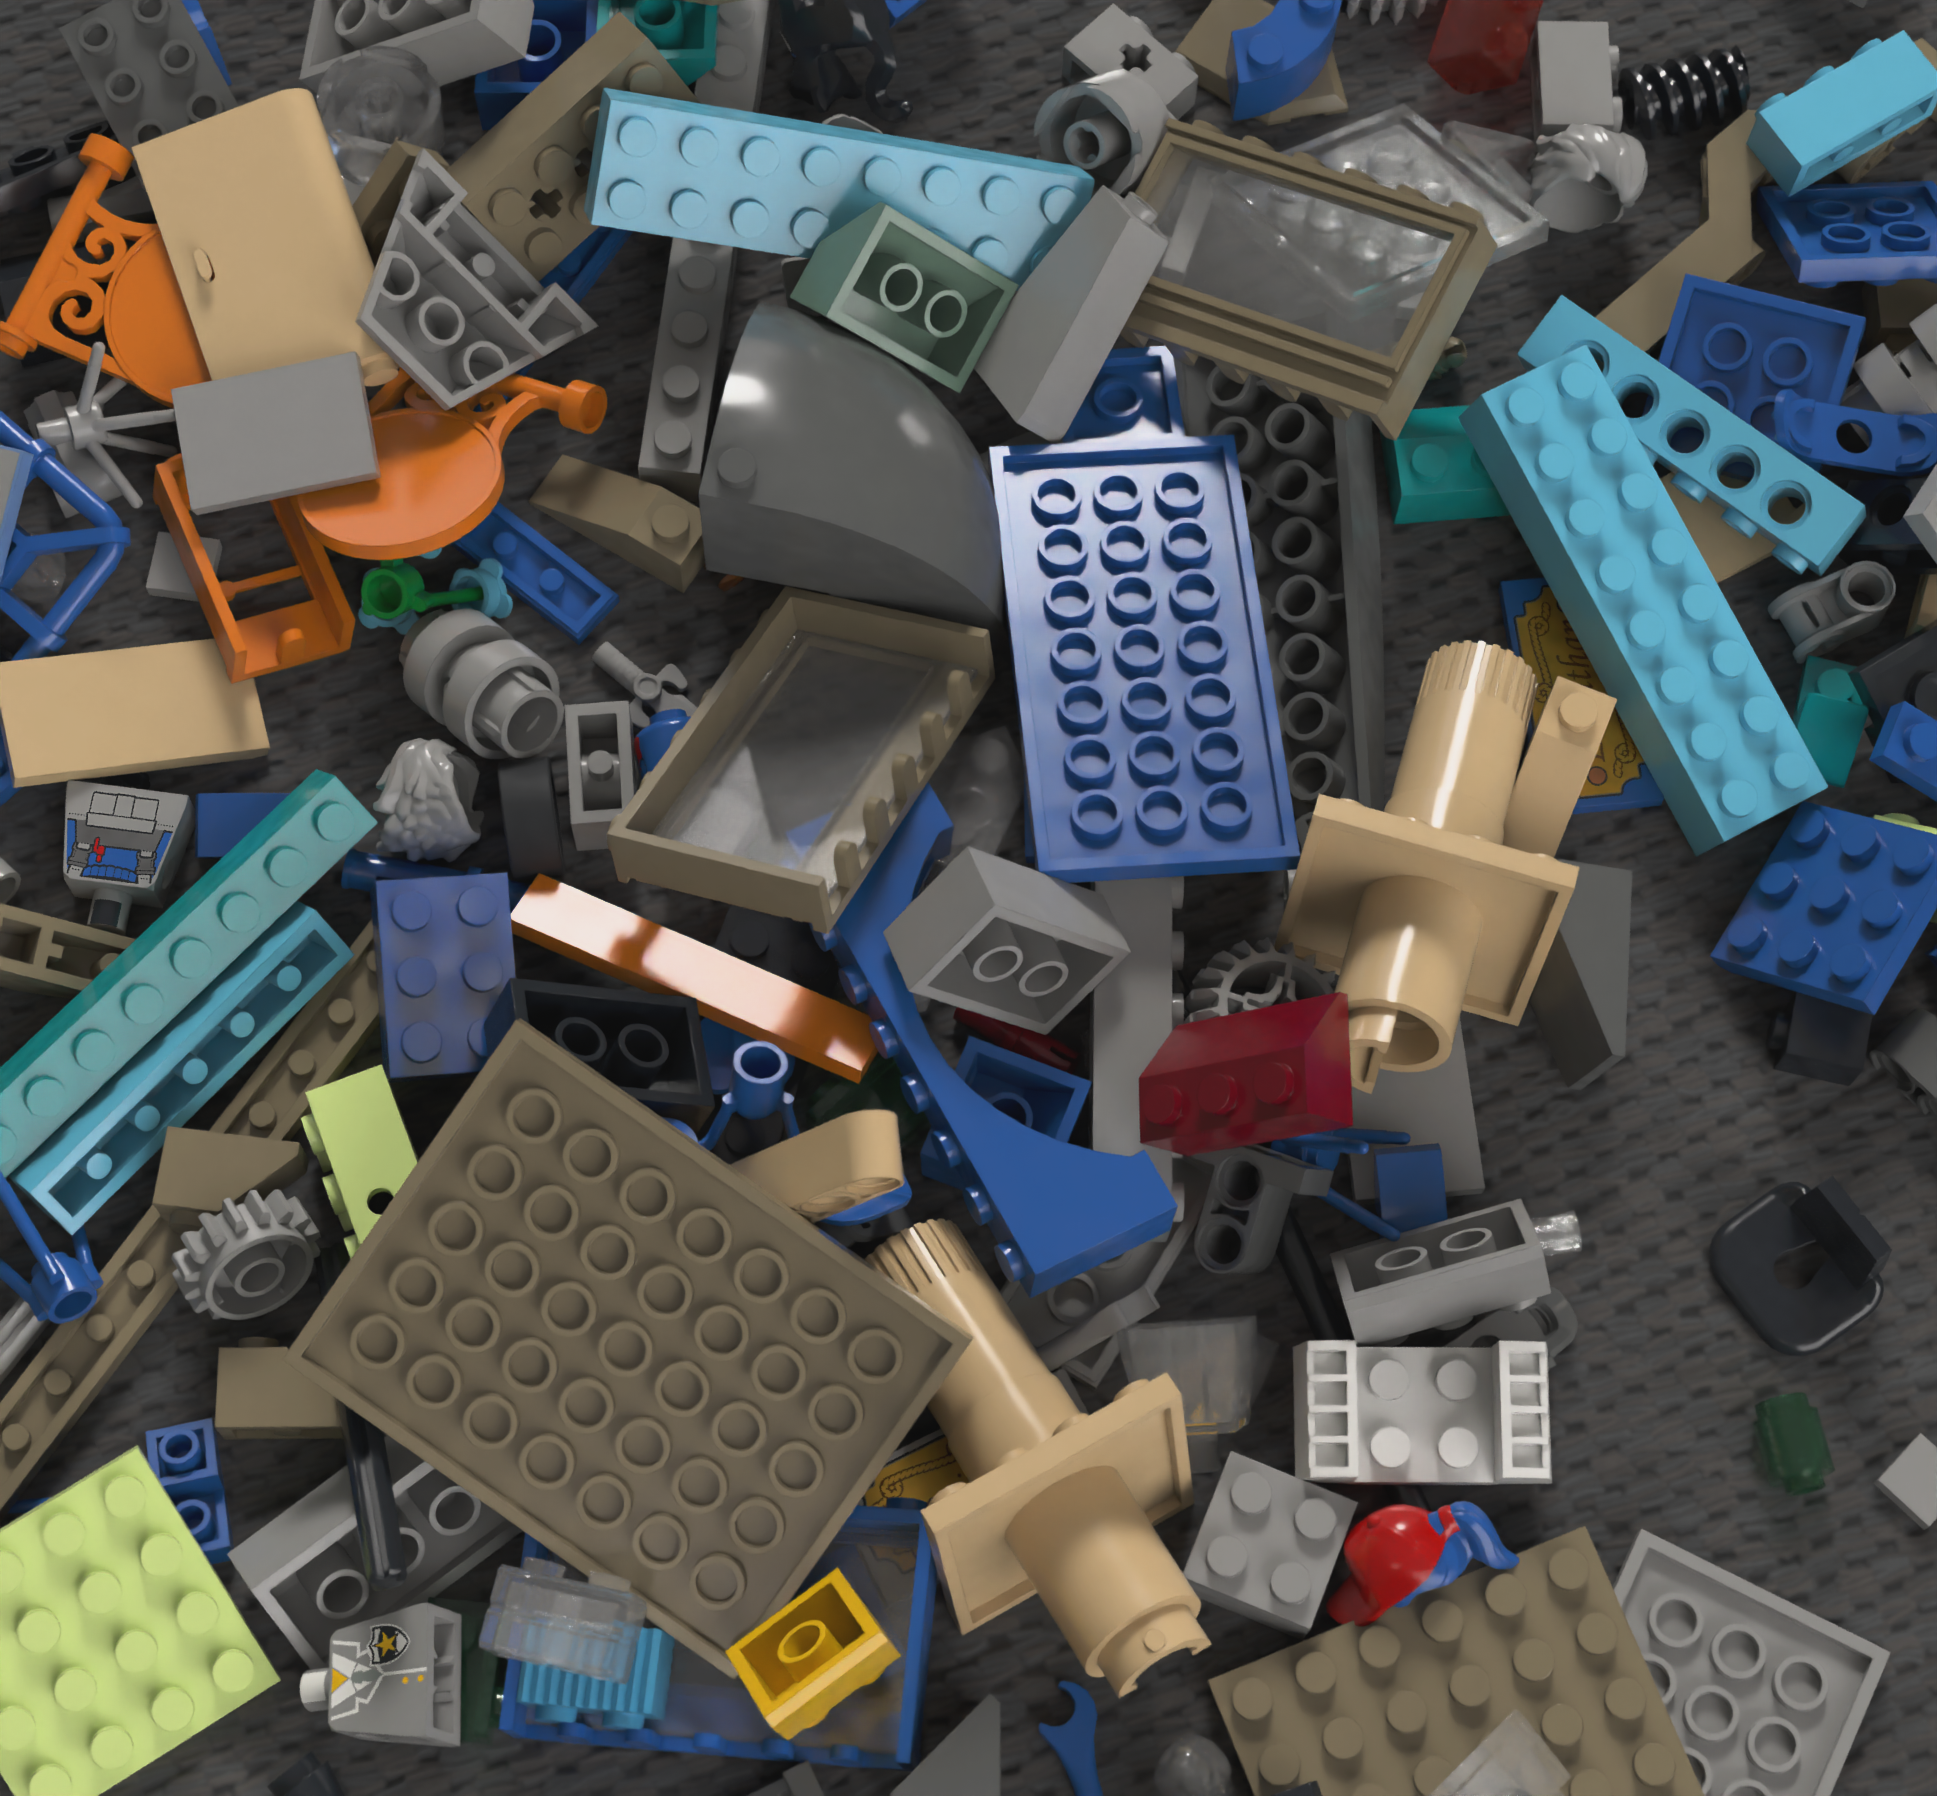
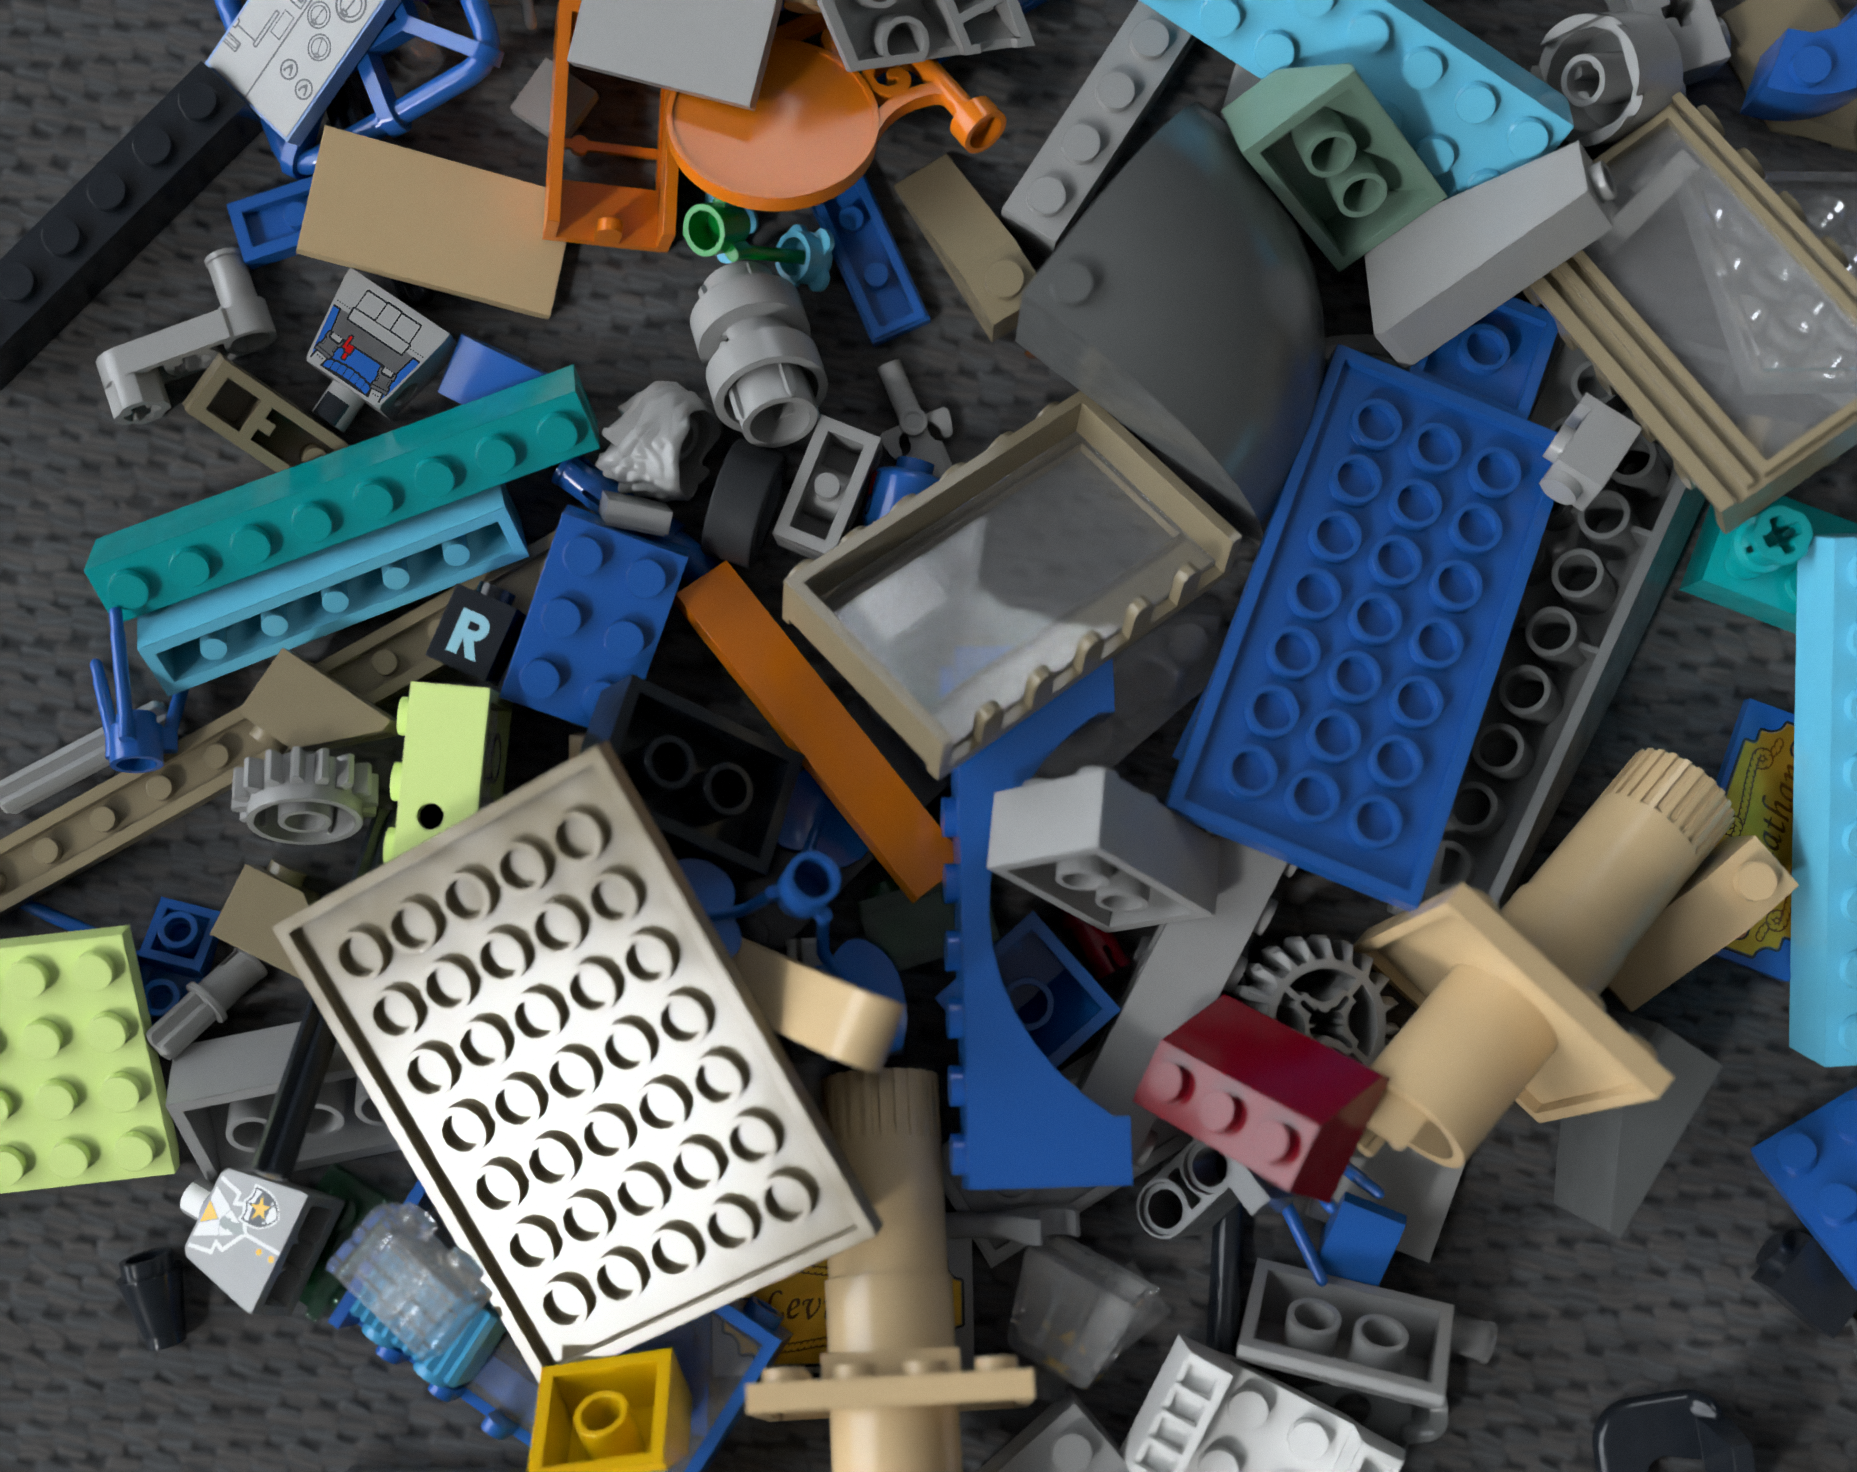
camera: 30 degrees right, 15 degrees up
(239, 1497) = (205, 1003): none -> light grey axle
(339, 1034) = (478, 632): none -> black brick
(438, 863) = (635, 513): none -> light grey tile
(1246, 433) = (1586, 452): none -> light grey brick
(1432, 426) = (1776, 521): none -> teal bush

